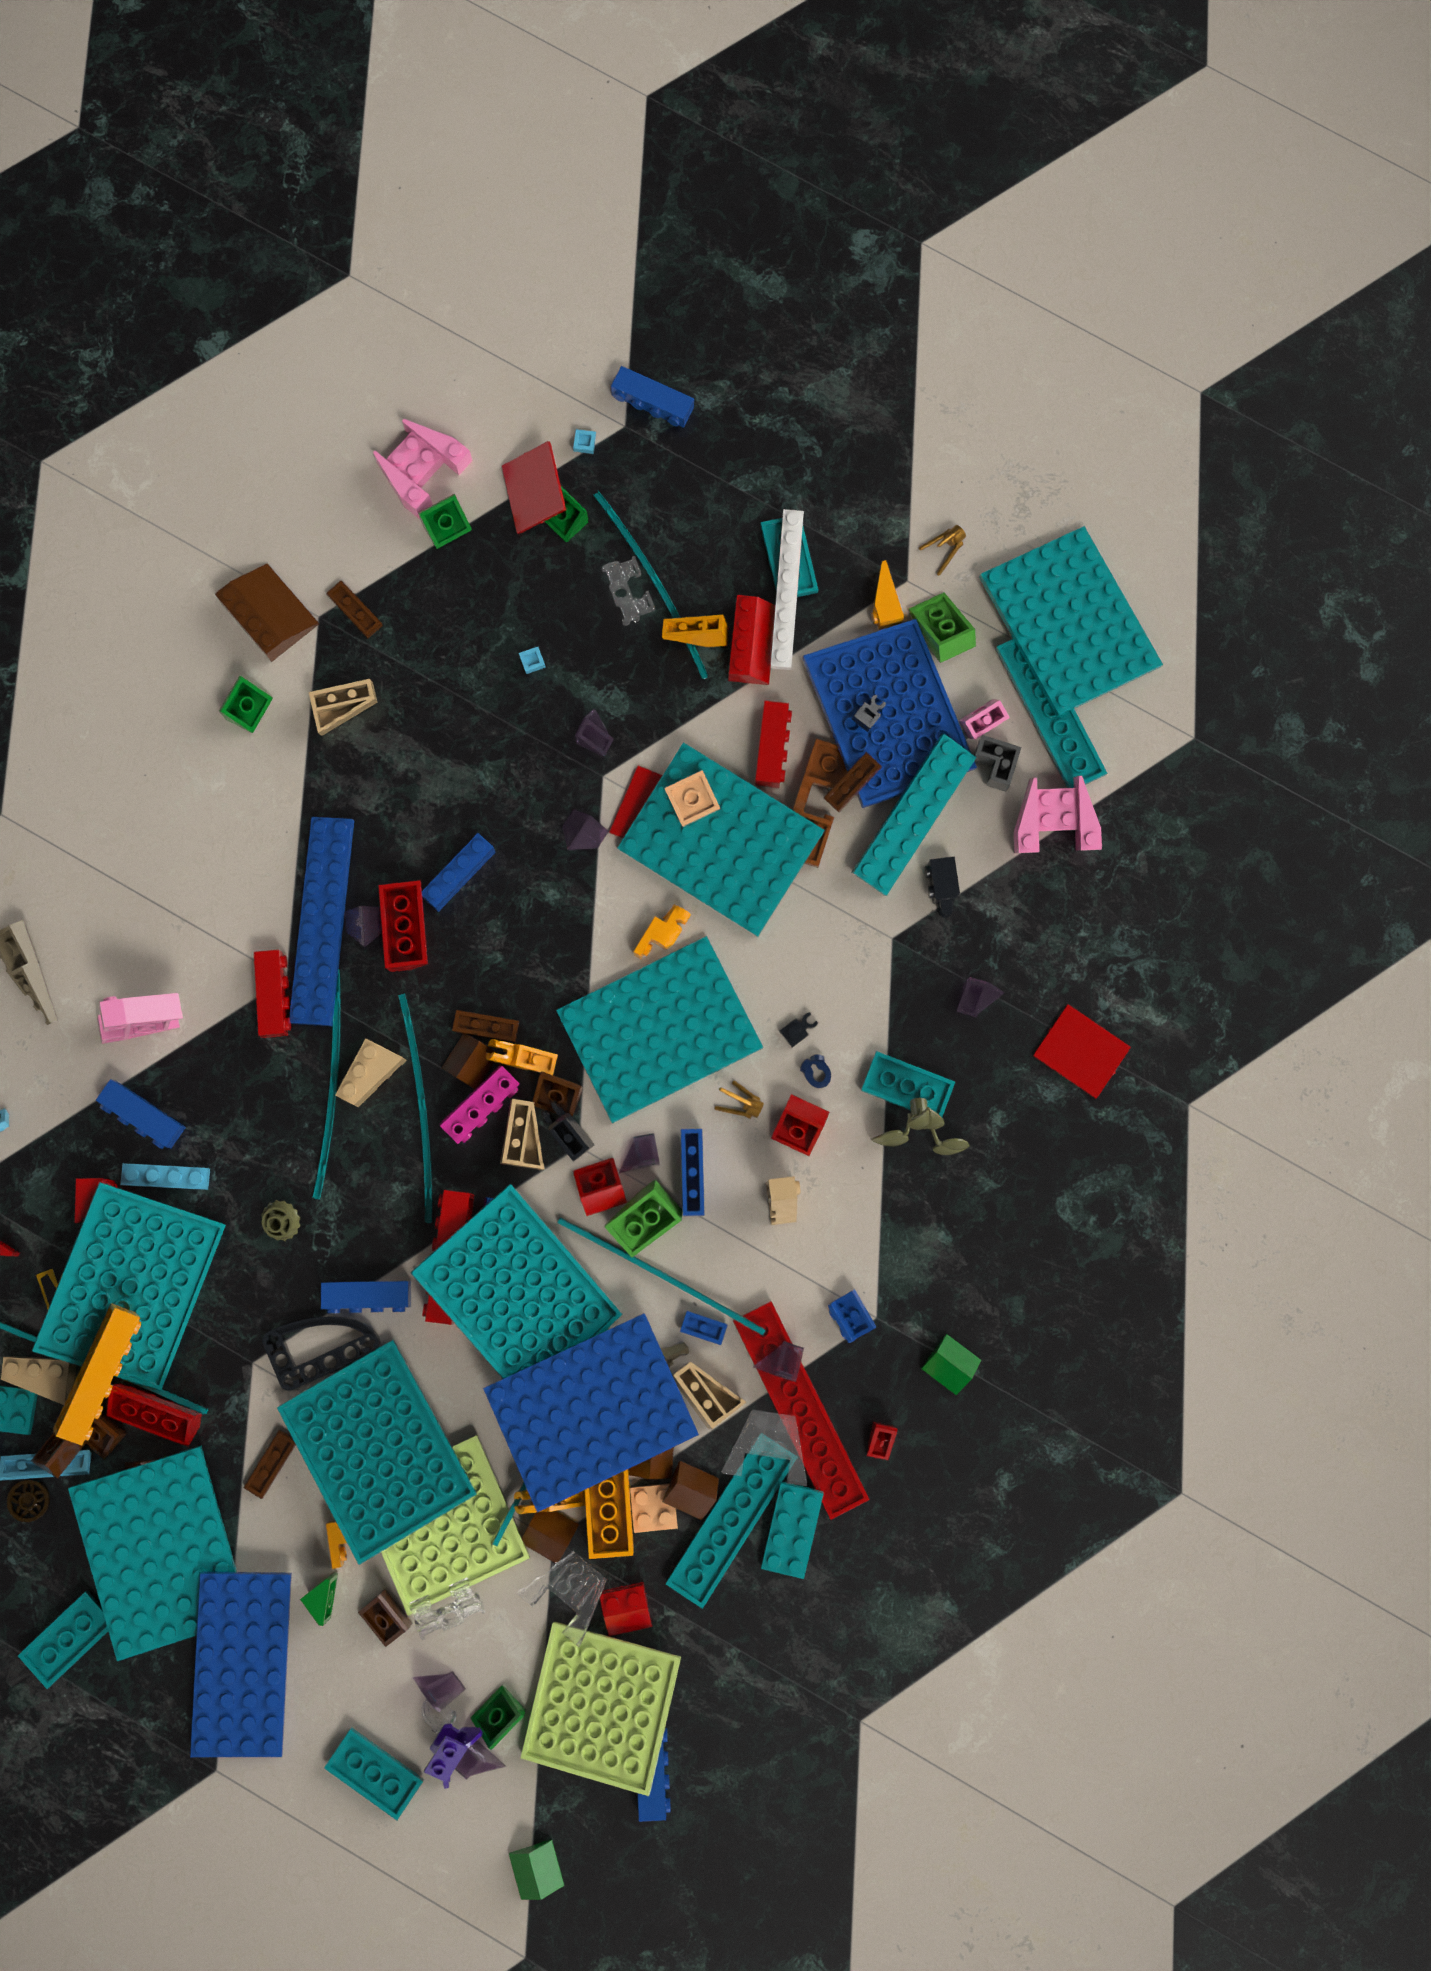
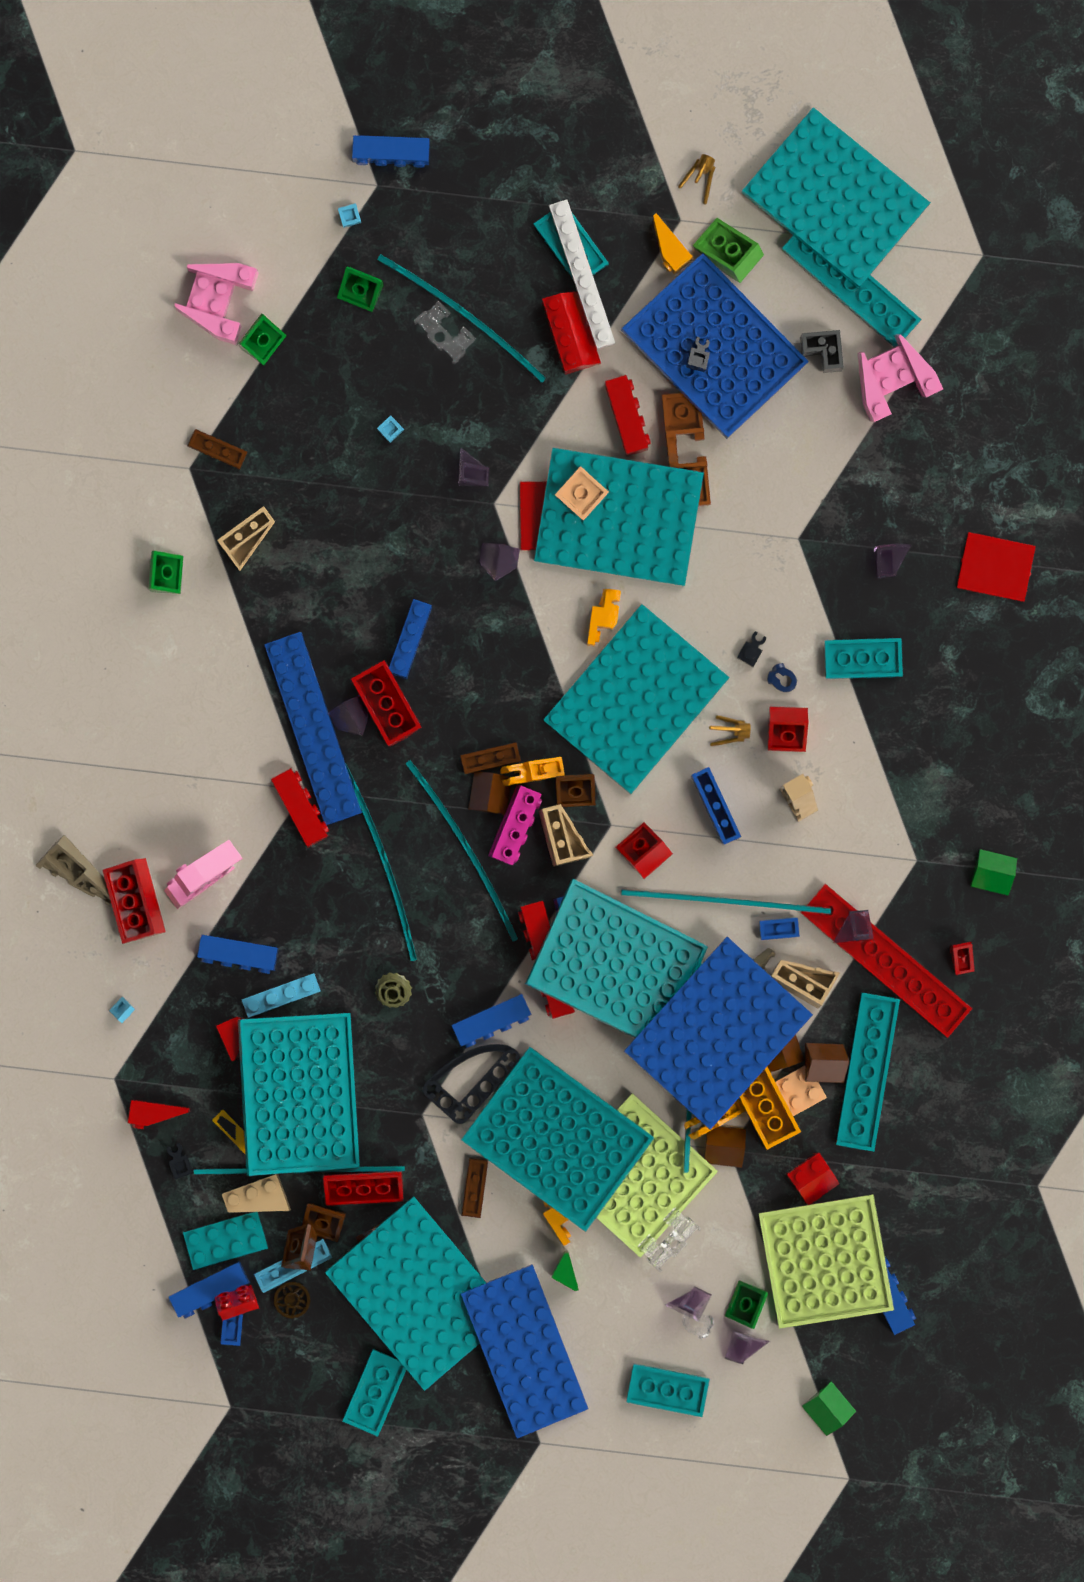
camera: 20 degrees left, 5 degrees up
(60, 1015) = (134, 900): none -> red slope
(96, 1374) = (309, 1170): light orange brick -> none
(267, 610) = (144, 482): reddish brown slope -> none
(368, 1072) = (410, 838): tan wedge -> none
(385, 1618) = (622, 1268): reddish brown slope -> none
(449, 1749) = (720, 1344): dark purple piece -> none
(533, 487) = (325, 277): red piece -> none
(567, 1132) = (598, 817): black hinge -> none
(575, 1585) = (762, 1175): clear wing -> none
(642, 1154) = (666, 809): clear purple slope -> none
(644, 1218) = (692, 860): bright green slope -> none
(700, 631) = (519, 344): light orange slope -> none
(769, 1436) = (870, 992): clear wing -> none
(792, 1530) = (920, 1059): teal plate -> none
(851, 1316) = (896, 867): blue bracket -> none
(852, 782) = (710, 421): reddish brown tile -> none
(914, 814) = (772, 425): teal plate -> none
(922, 1118) = (887, 681): olive plant -> none
(943, 883) = (822, 474): black hinge -> none
(984, 719) = (797, 317): bright pink brick -> none

